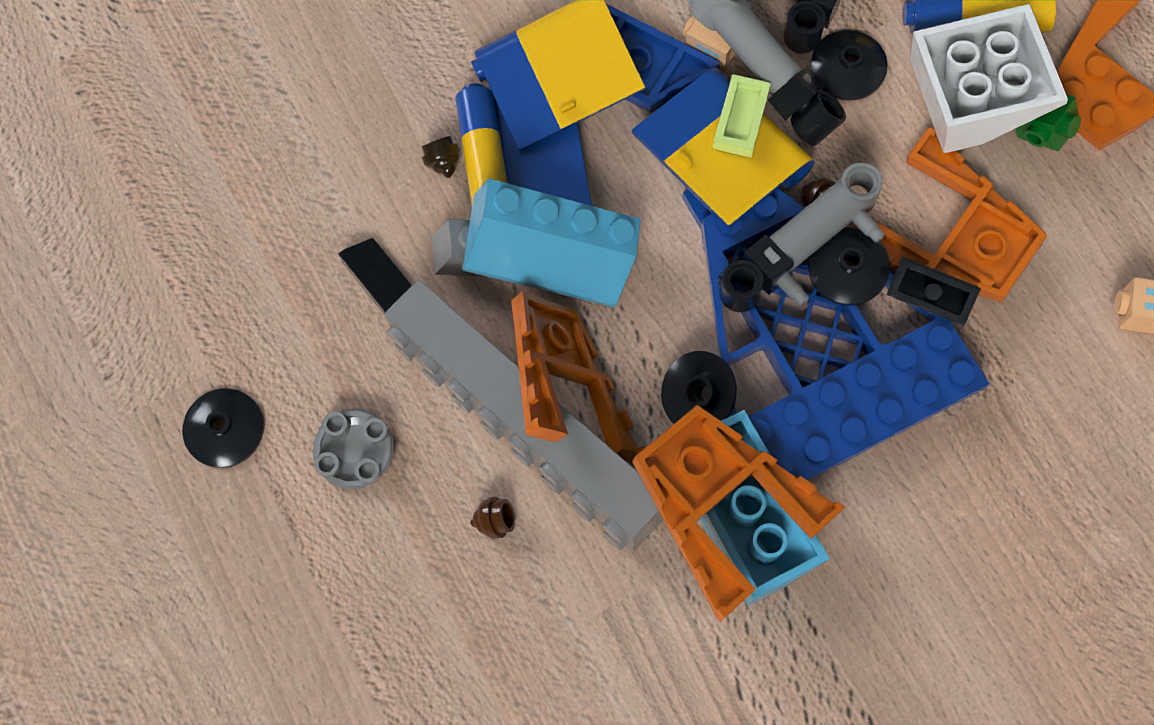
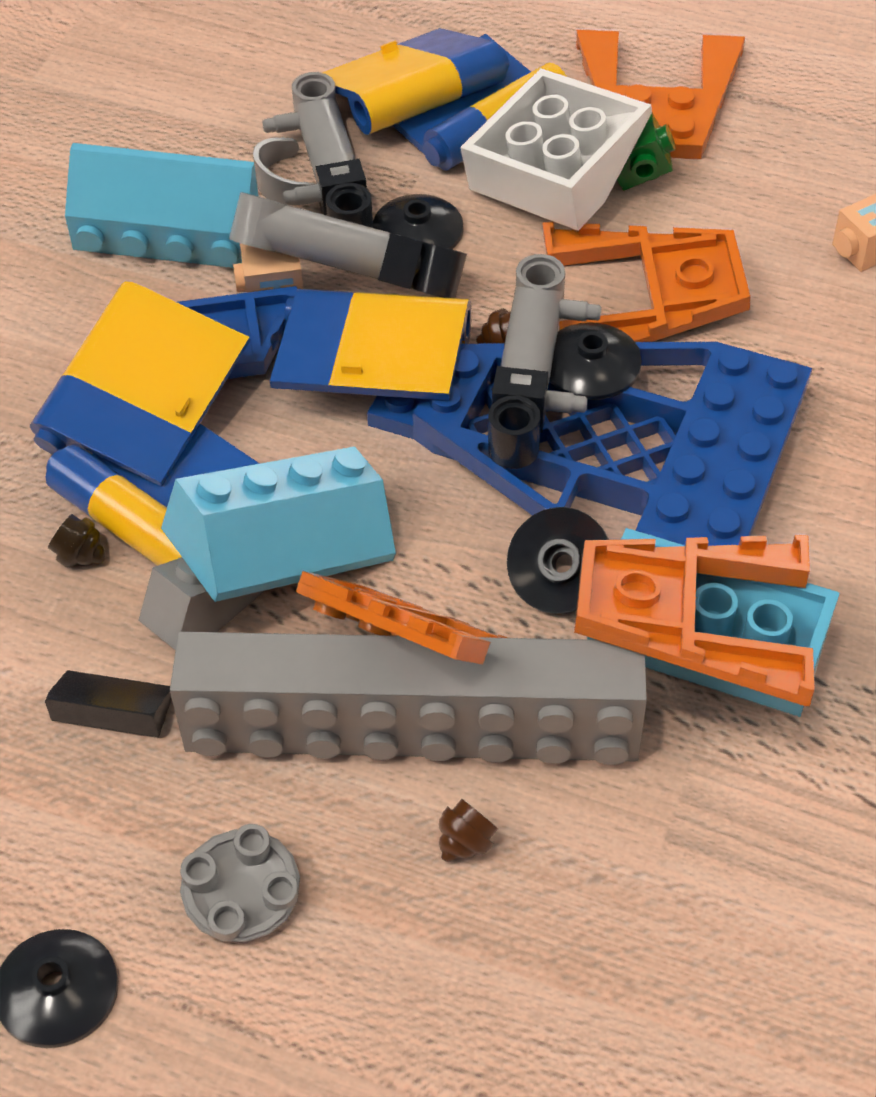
camera: 45 degrees left, 20 degrees down
(741, 115) = (369, 301): yellowish green tile -> none
(933, 291) = (686, 325): black slope -> none

